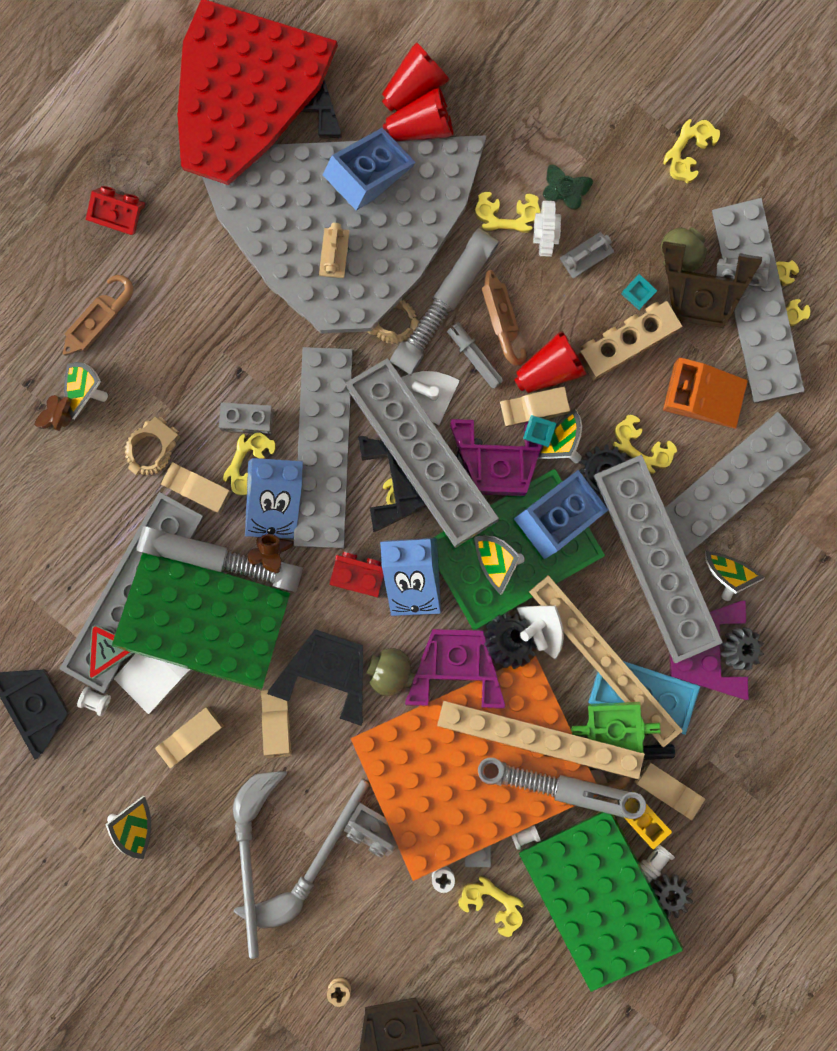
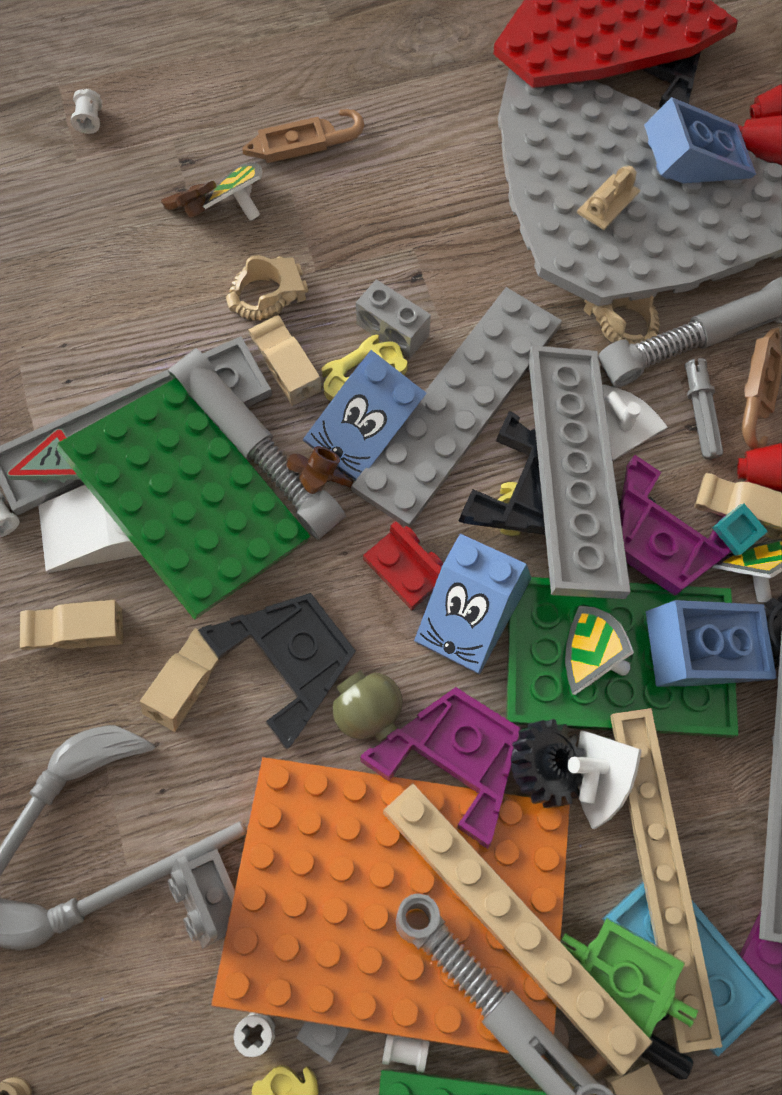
camera: 30 degrees right, 15 degrees down
(114, 210) = (394, 54): red bracket -> none

